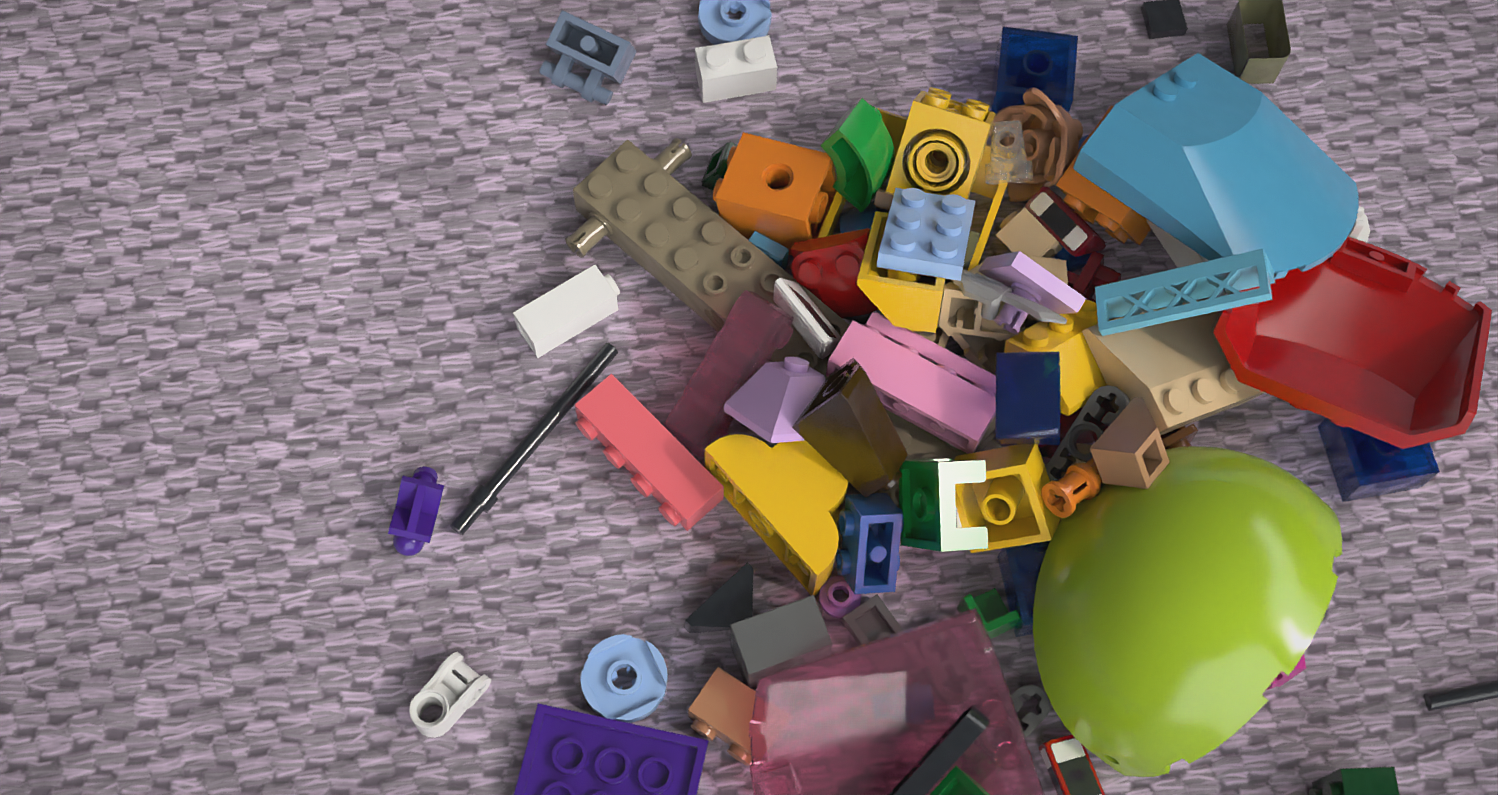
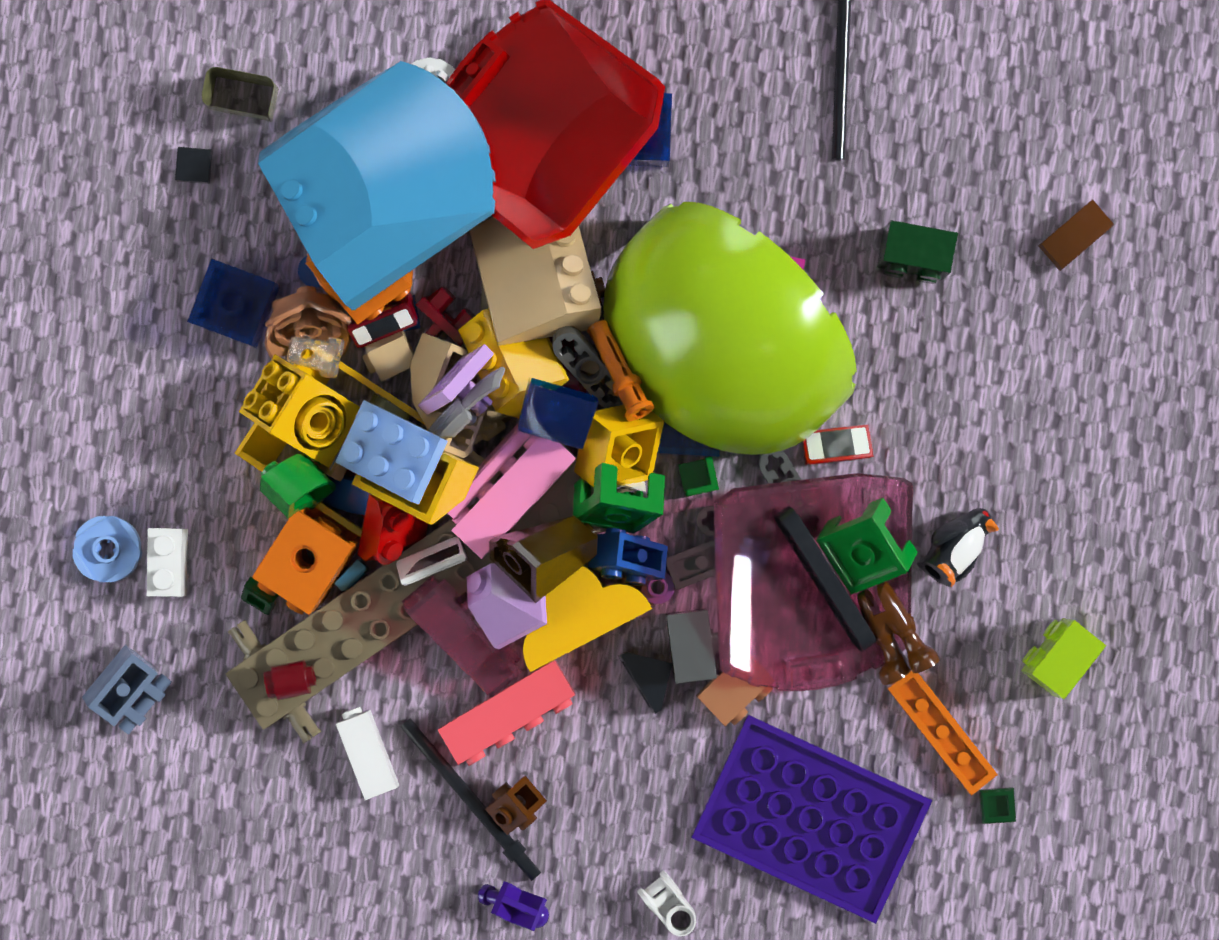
camera: 75 degrees left, 20 degrees up
(538, 482) = (515, 805): none -> reddish brown brick
(635, 193) = (289, 680): none -> dark red brick
(646, 689) = (675, 784): light blue plate -> none
(1131, 449) = (615, 343): medium nougat slope -> none
(1186, 286) = (483, 293): medium azure fence -> none

